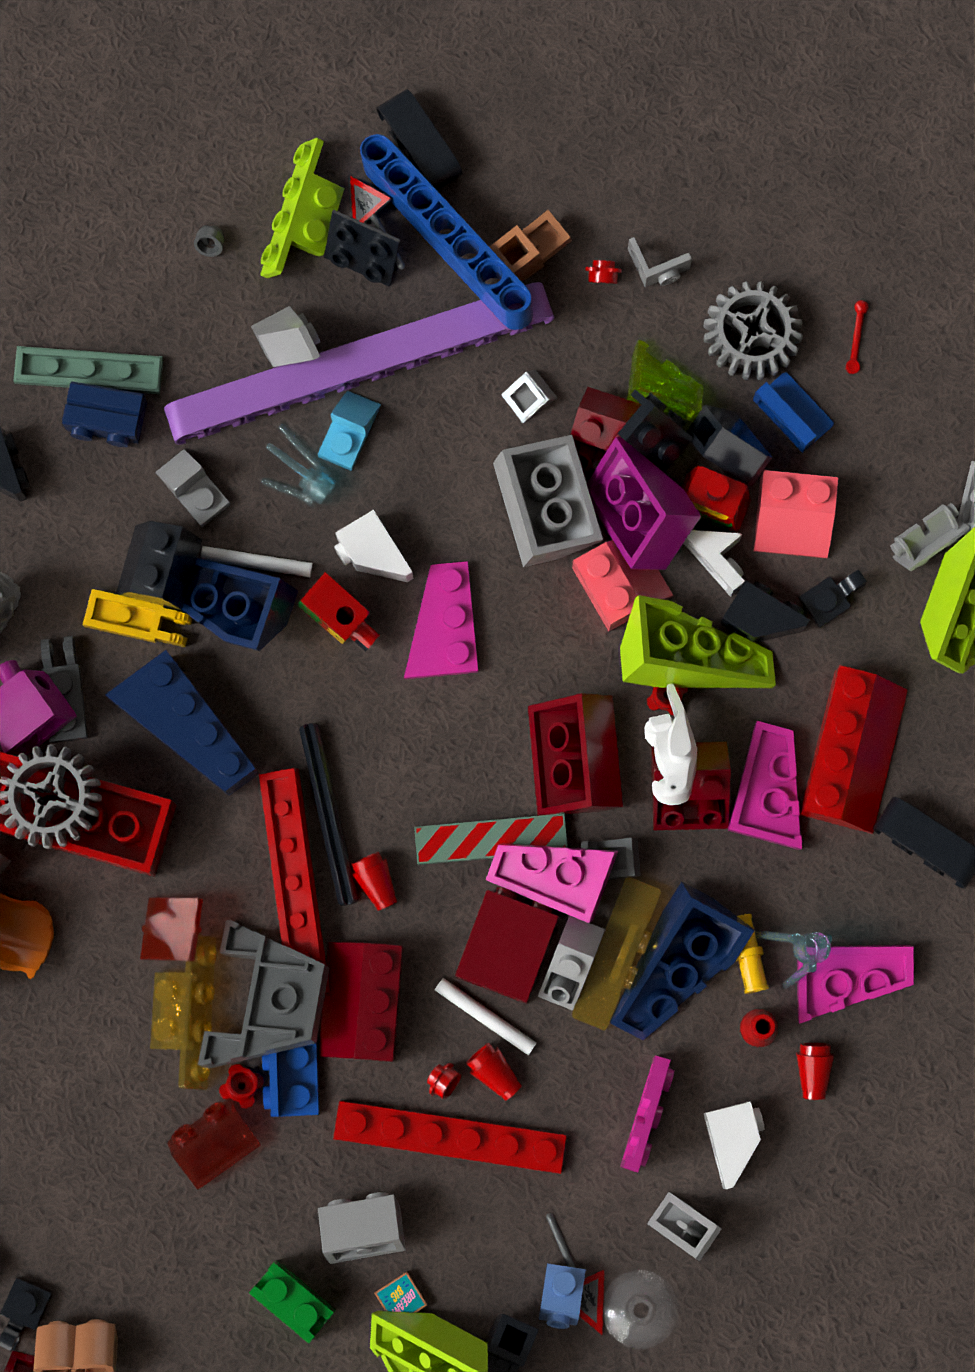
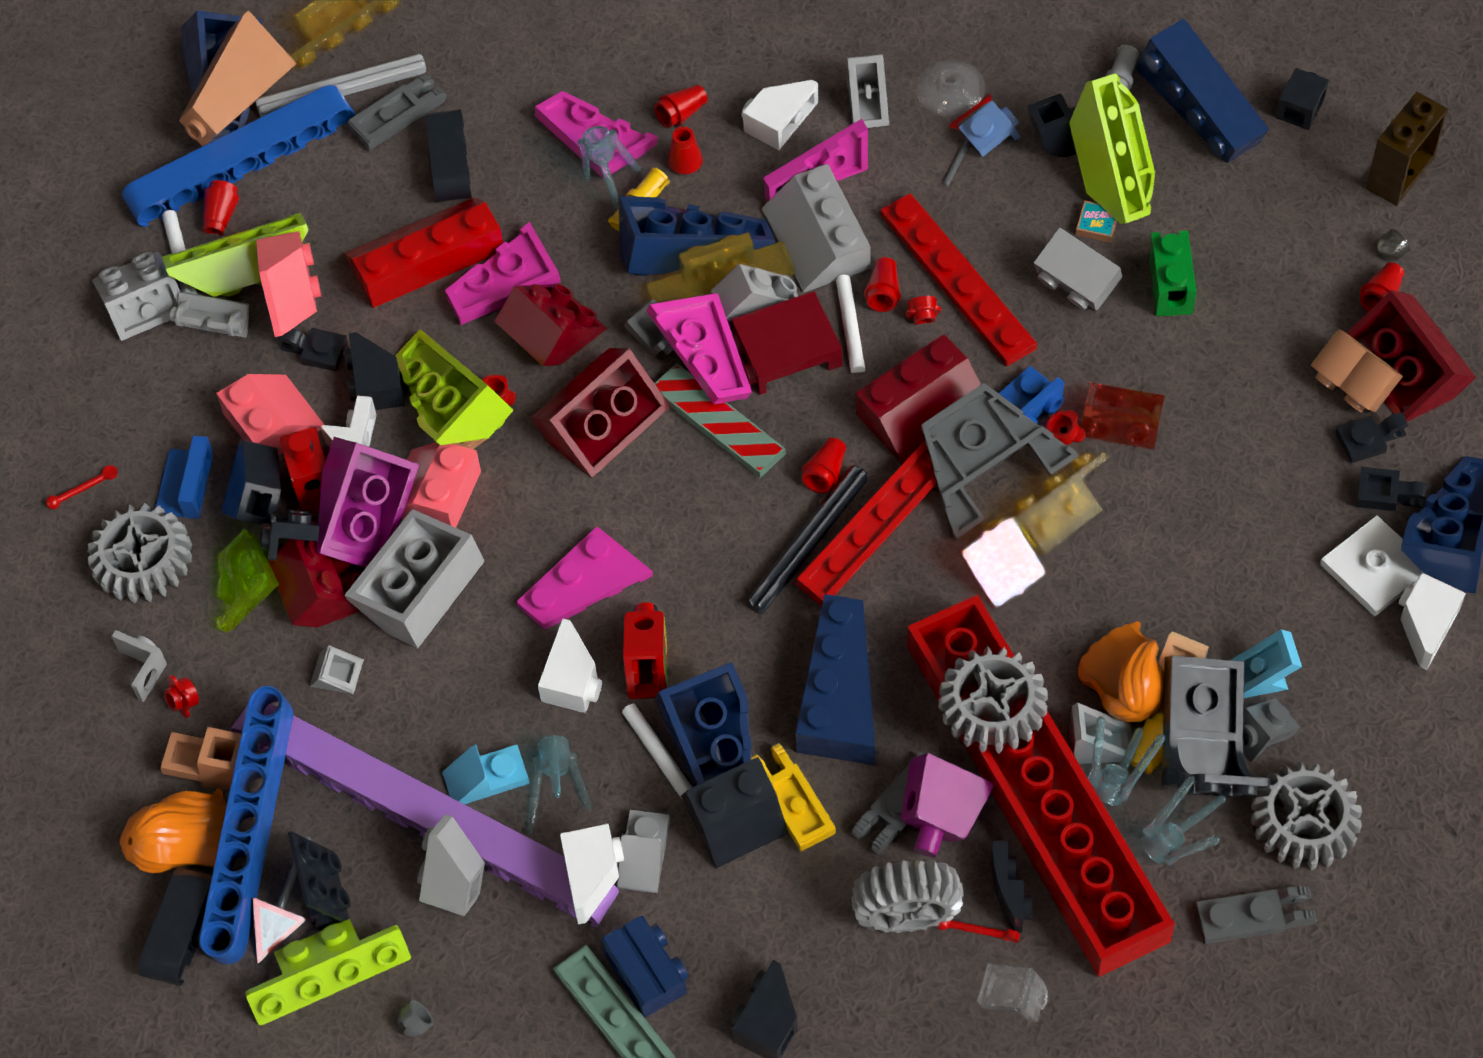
camera: 130 degrees left, 20 degrees down
(194, 423) = (591, 866): none -> white slope
(492, 187) = (175, 832): none -> orange piece
(591, 1064) = (818, 228): none -> light grey slope
(673, 751) = (536, 323): white animal -> none
(898, 605) = (287, 280): none -> coral slope

